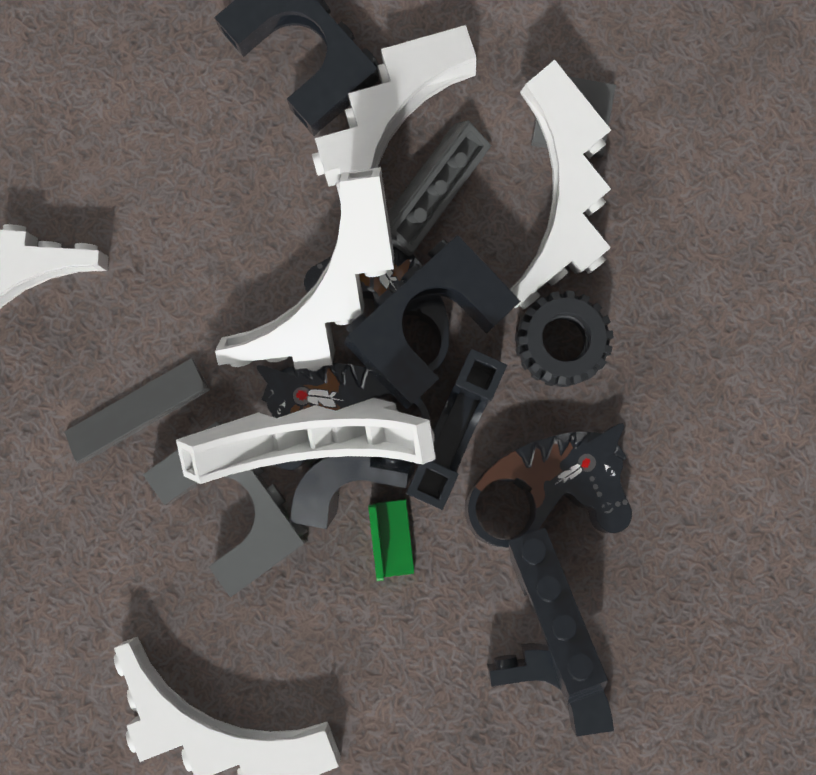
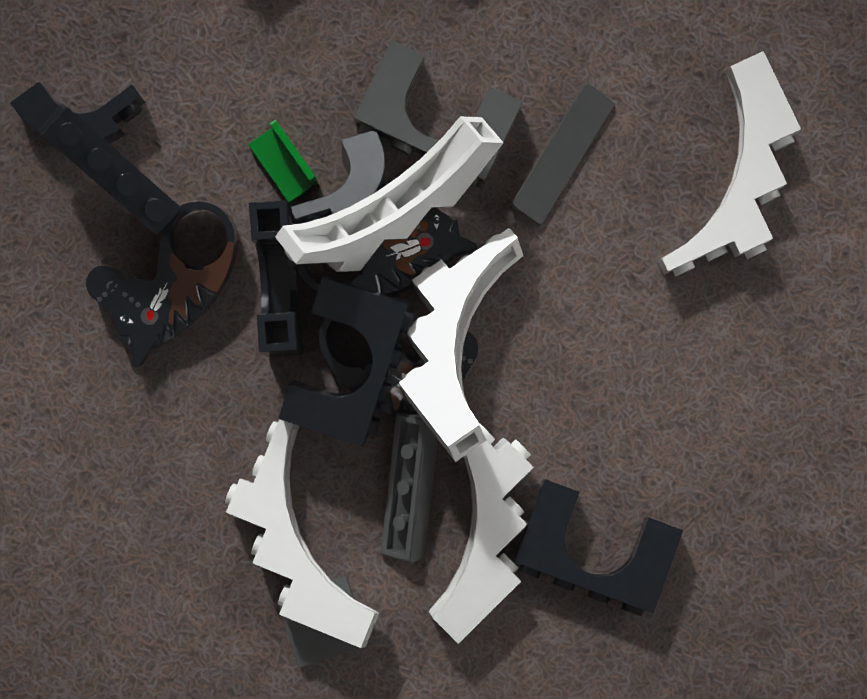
camera: 150 degrees right, 0 degrees up
(590, 323) = (193, 411): black tyre -> none

